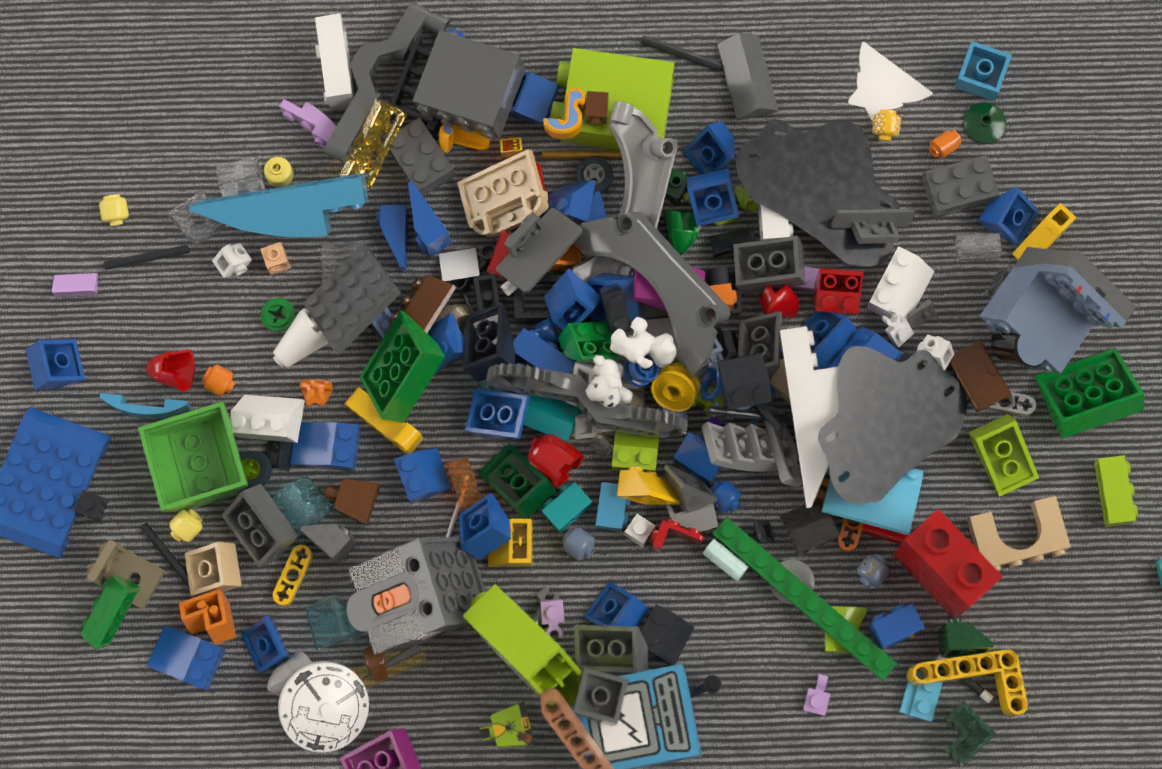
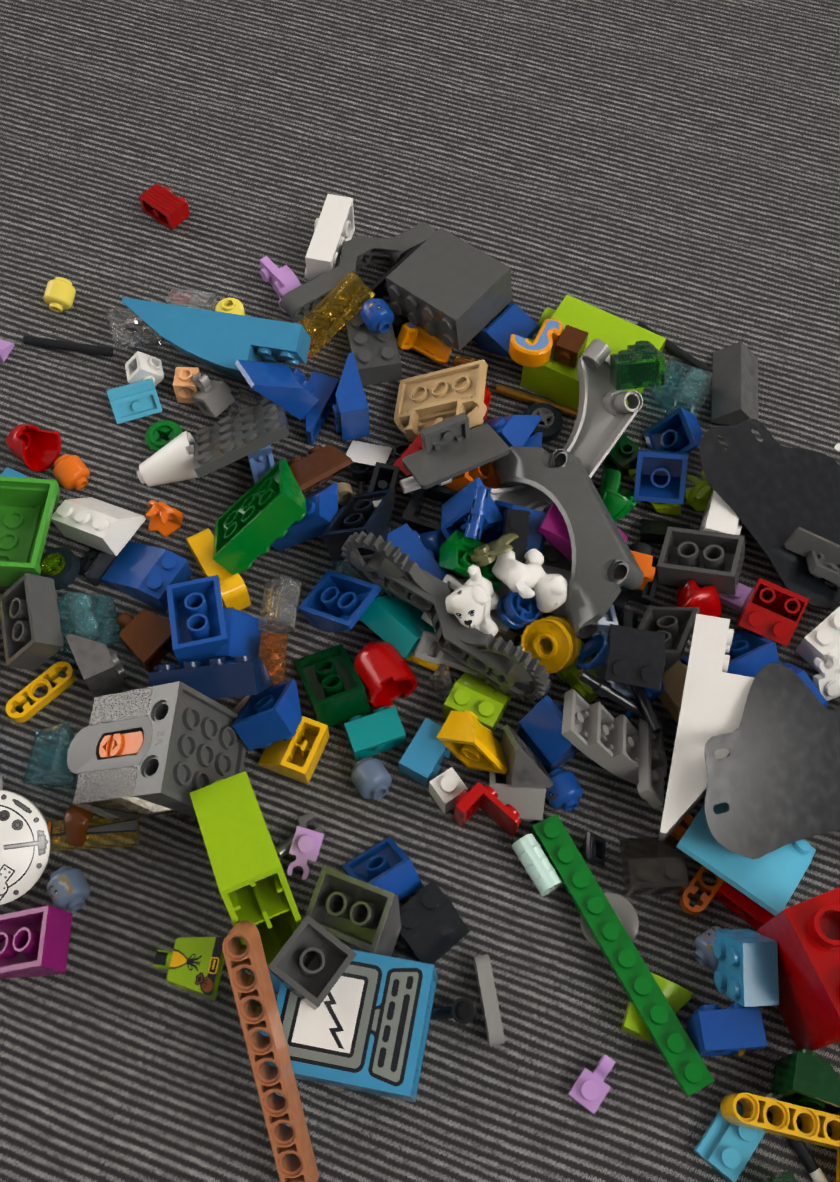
camera: 15 degrees right, 15 degrees down
(159, 74) = (164, 206): none -> red brick
(237, 292) = (134, 400): none -> medium azure plate
(303, 262) = (213, 395): none -> light grey brick
(362, 237) = (280, 385): none -> blue slope
(394, 712) = (68, 888): none -> sand blue head
(395, 474) = (196, 619): none -> blue slope
(416, 134) = (377, 315): none -> blue head
(430, 520) = (218, 677): none -> dark blue slope
(448, 432) = (279, 605): none -> clear brick
(581, 306) = (477, 512): none -> blue pin
(606, 333) = (487, 553): none -> olive plate
(663, 115) = (637, 367): none -> clear green brick
(702, 98) = (683, 387): none -> clear light blue slope
(726, 669) = (488, 1000): none -> light grey beam
(896, 579) = (747, 967): none -> dark azure brick

